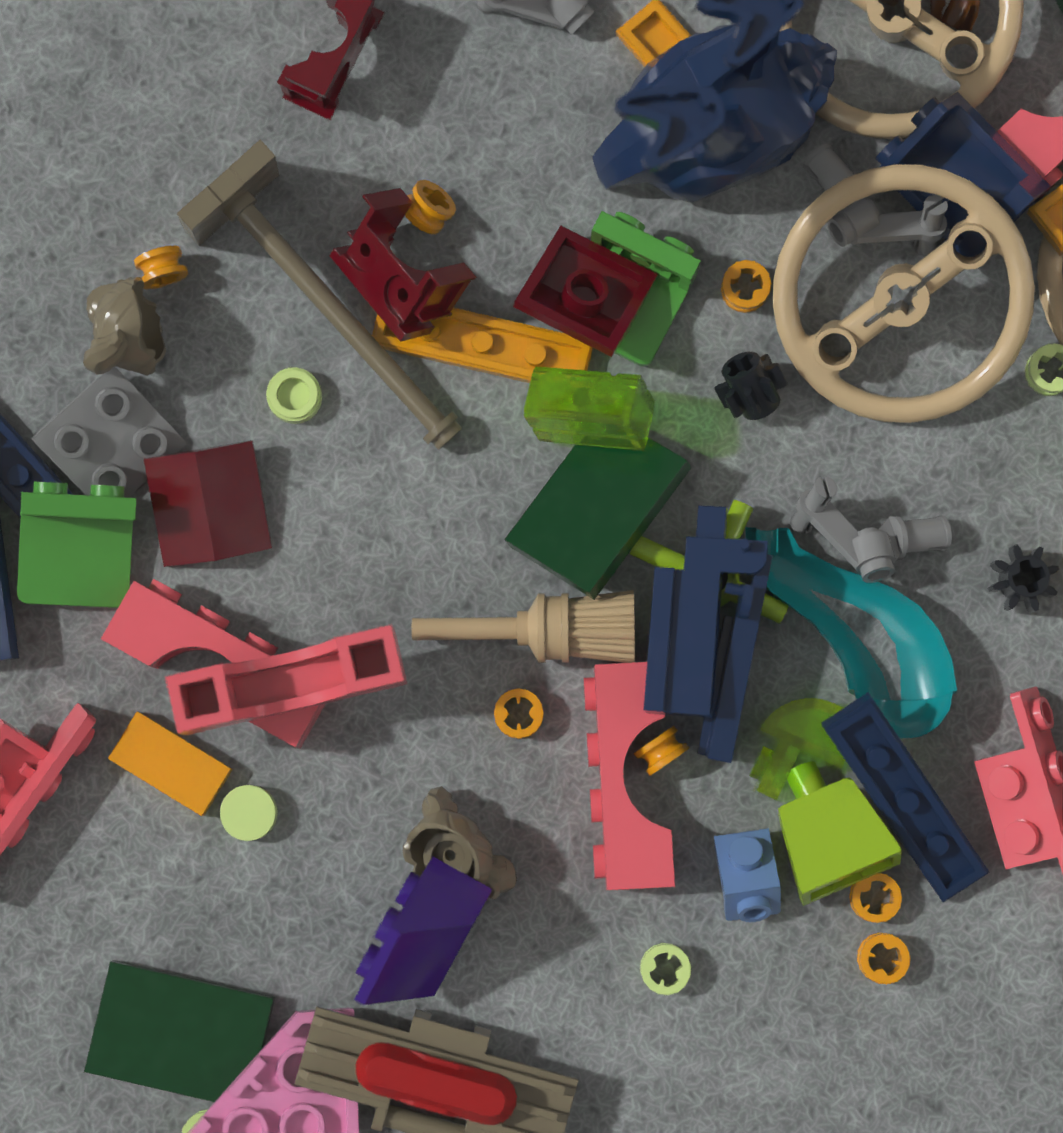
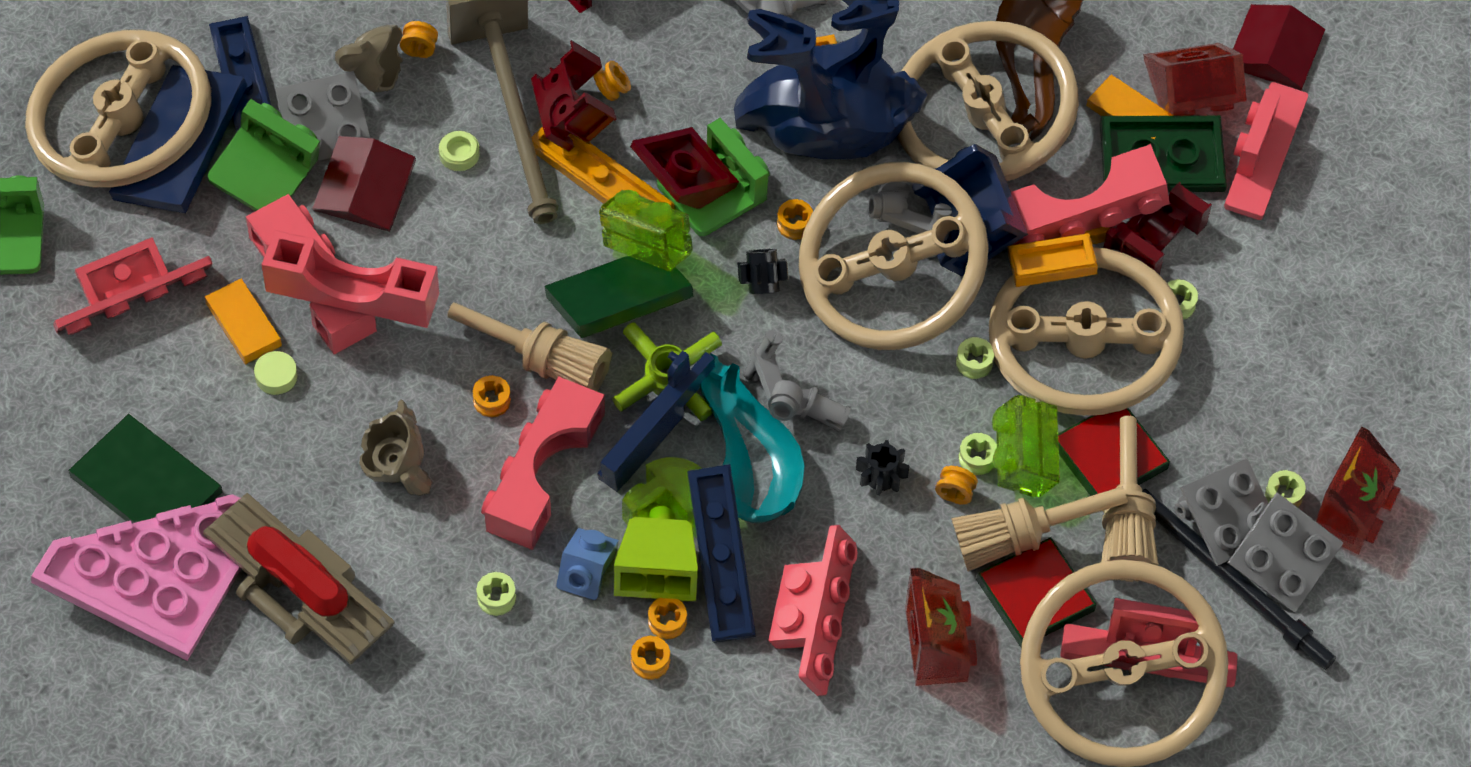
camera: 20 degrees right, 25 degrees down
(422, 936) = (342, 475): dark purple slope -> none
(661, 750) = (573, 458): light orange bush -> none
(688, 616) = (635, 372): dark blue piece -> none

